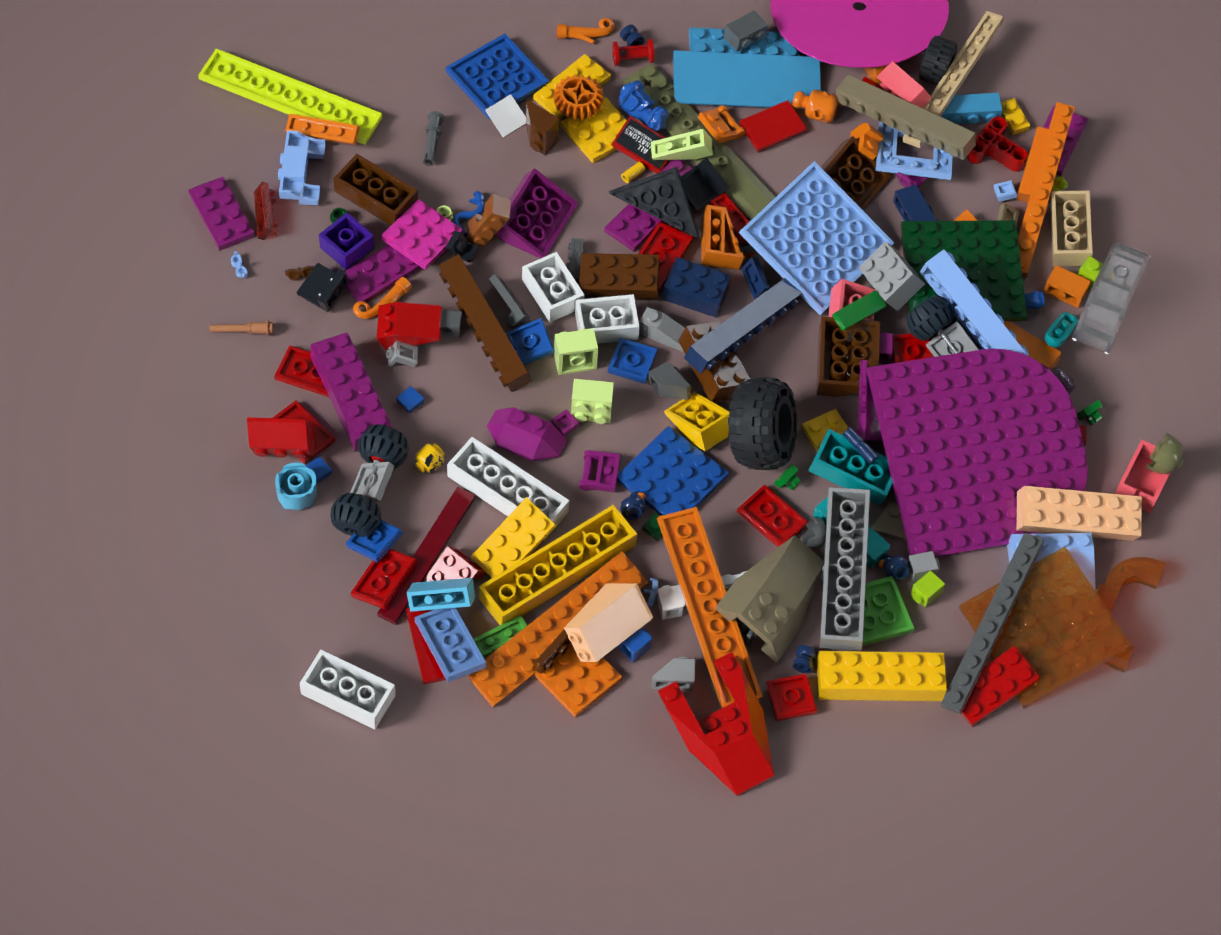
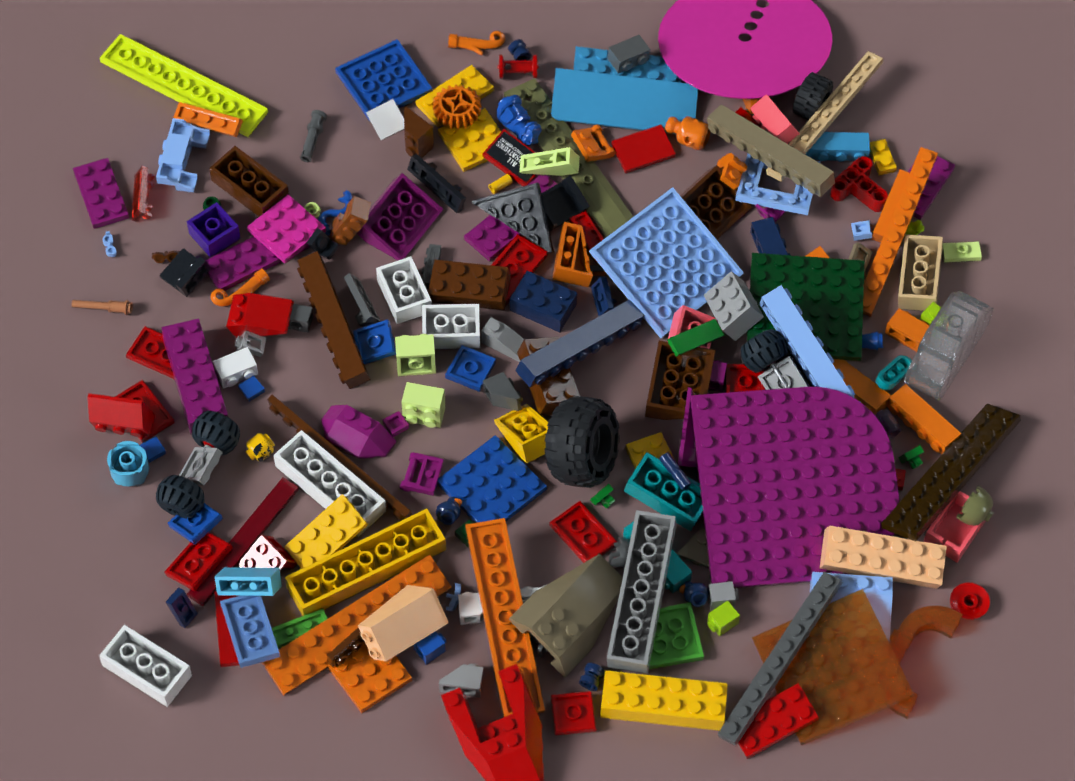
camera: 10 degrees right, 0 degrees up
(376, 627) = (181, 607): none -> dark blue plate
(392, 379) = (235, 367): none -> white brick
(460, 428) = (291, 419): none -> reddish brown plate
(568, 176) = (436, 183): none -> black hinge
(1096, 374) = (922, 419): none -> orange brick
(1108, 204) = (961, 252): none -> yellowish green plate
(1133, 423) = (950, 472): none -> dark brown plate
(1172, 543) = (970, 593): none -> red dish

